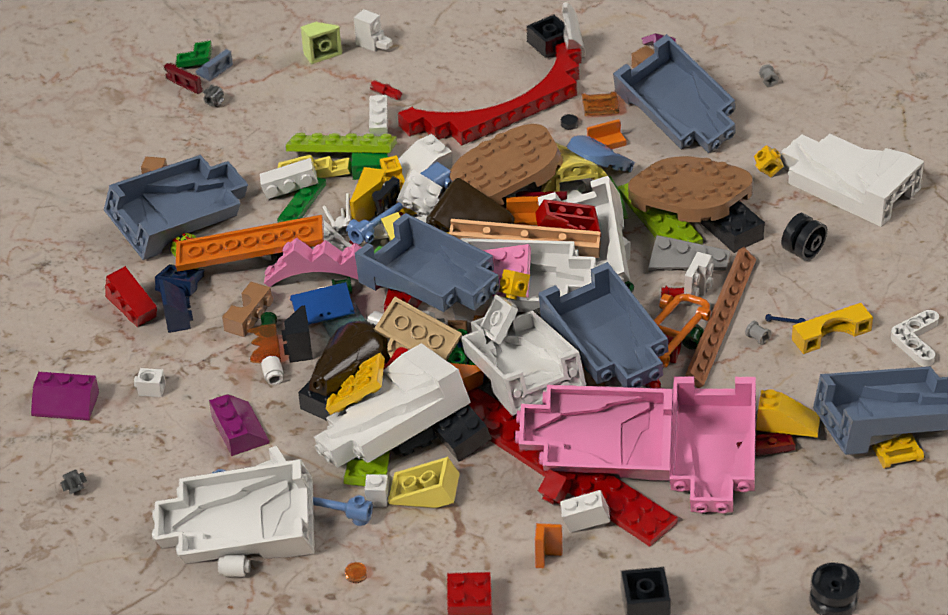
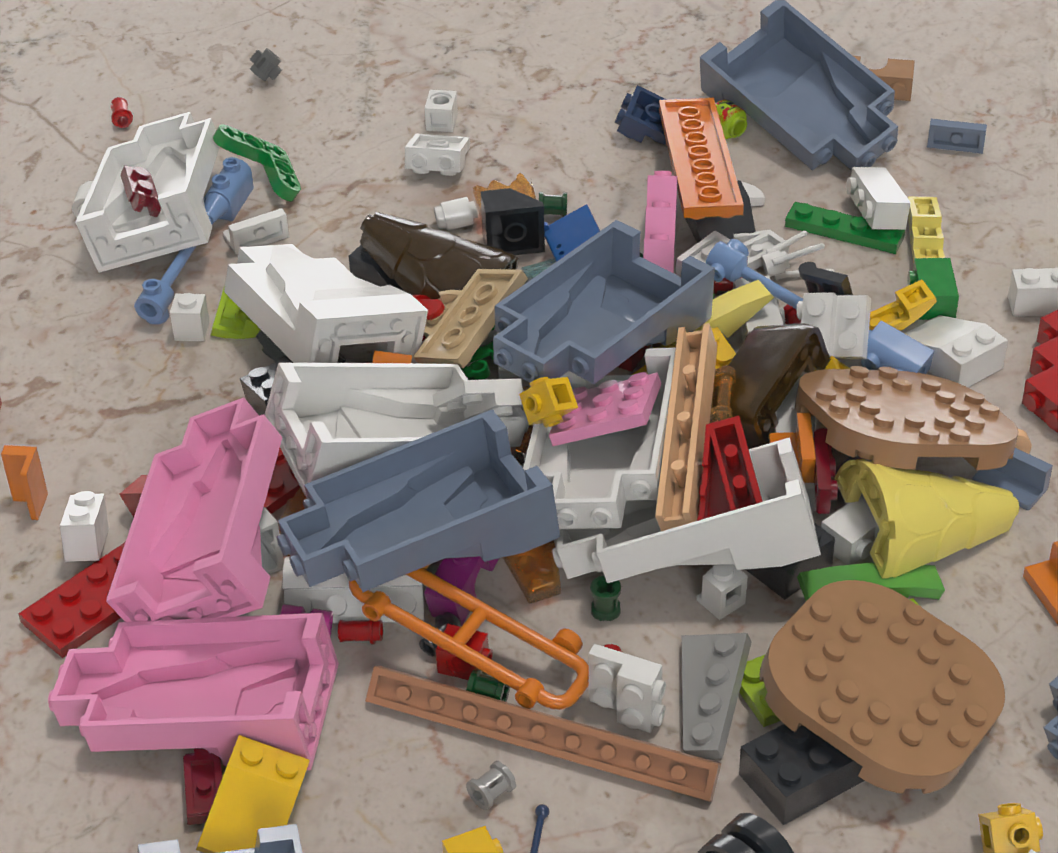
camera: 90 degrees right, 0 degrees up
(64, 395) = (426, 46): magenta slope -> none
(116, 565) = (121, 115): none -> red pin
(129, 297) = (606, 74): red wedge -> none
(175, 307) = (583, 109): dark blue slope -> none
(200, 466) = (272, 157): none -> green beam
(202, 380) = (436, 153): none -> white plate
(216, 150) = (956, 136): none -> sand blue panel
(237, 424) = (350, 187): magenta slope -> none
(242, 524) = (140, 189): none -> hinge
(255, 300) = (602, 191): medium nougat arch -> none
(335, 143) = (980, 252): lime plate -> none
(356, 572) = (54, 312): clear orange tile -> none
(361, 202) = (855, 262): yellow slope -> none
(366, 381) = (346, 257): yellow plate -> none
(425, 485) = (190, 368): light yellow slope -> none
(599, 153) = (946, 524): medium blue slope -> none

